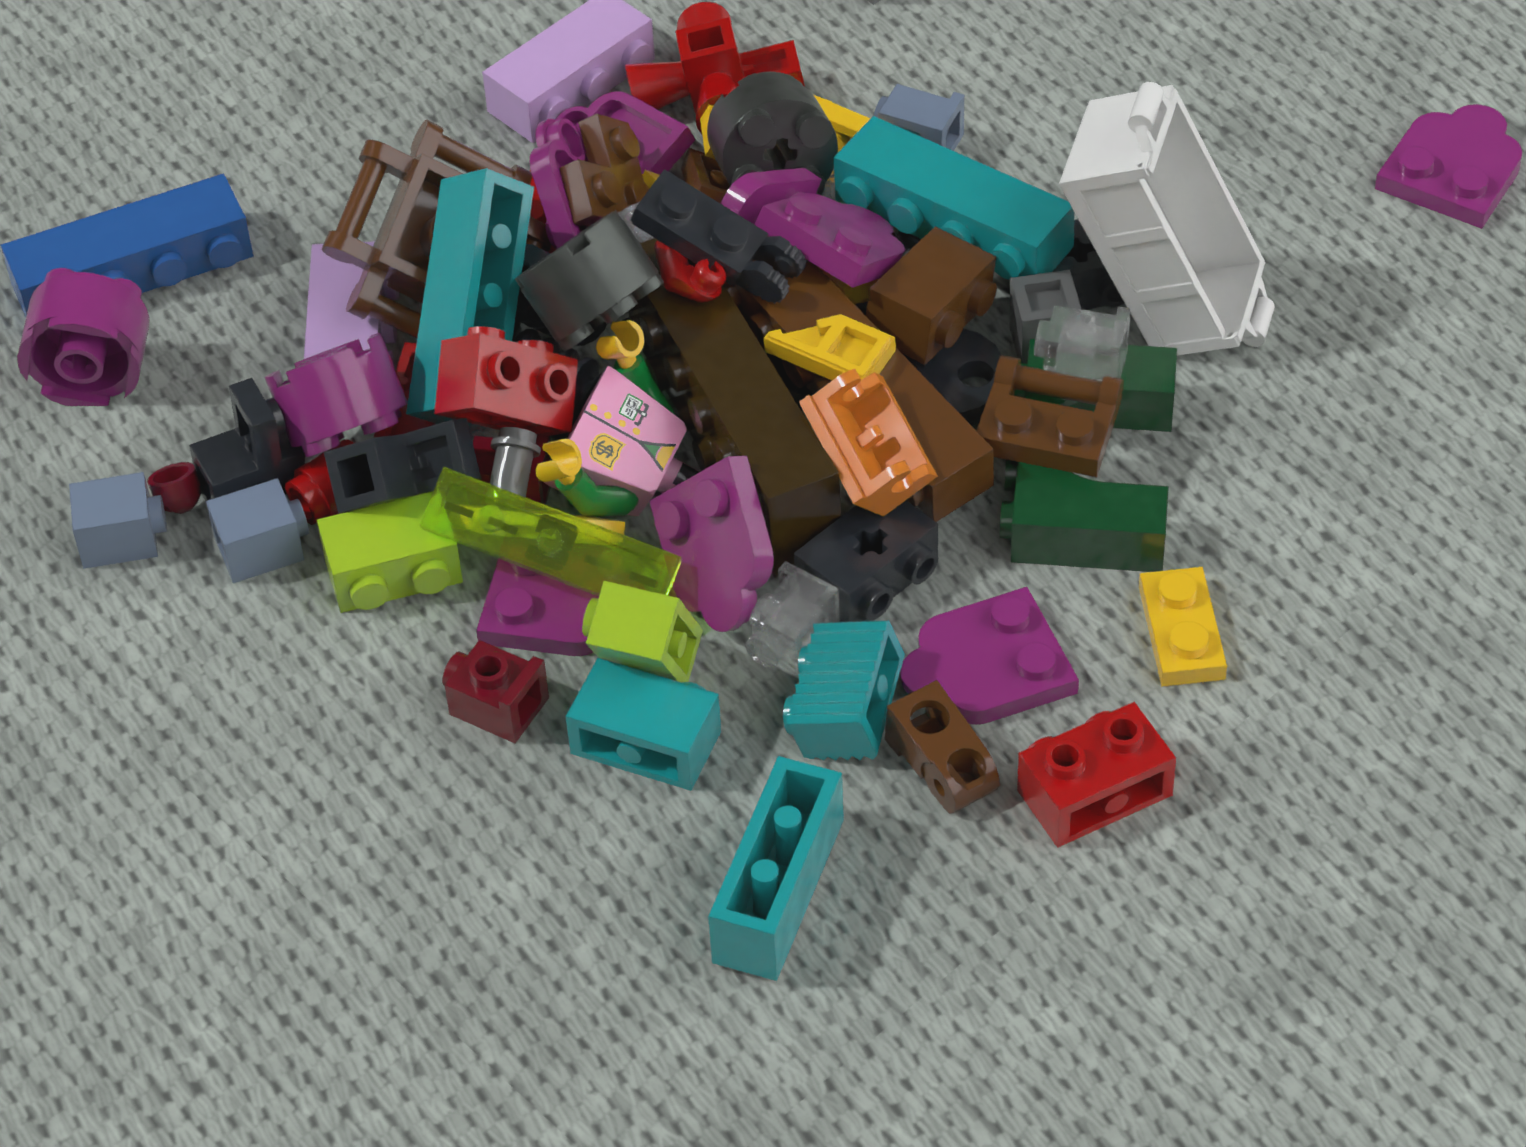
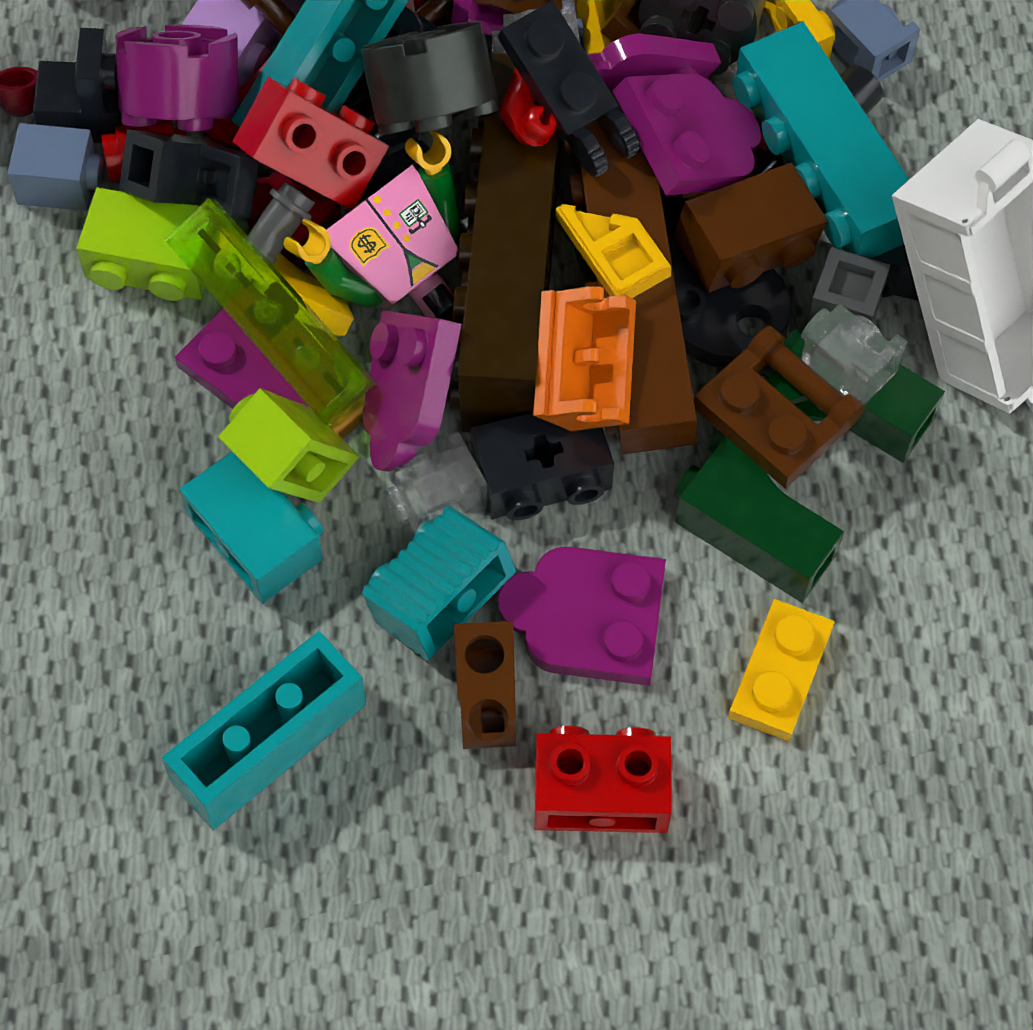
camera: 25 degrees right, 15 degrees up
(495, 689) = (158, 439): dark red brick -> none

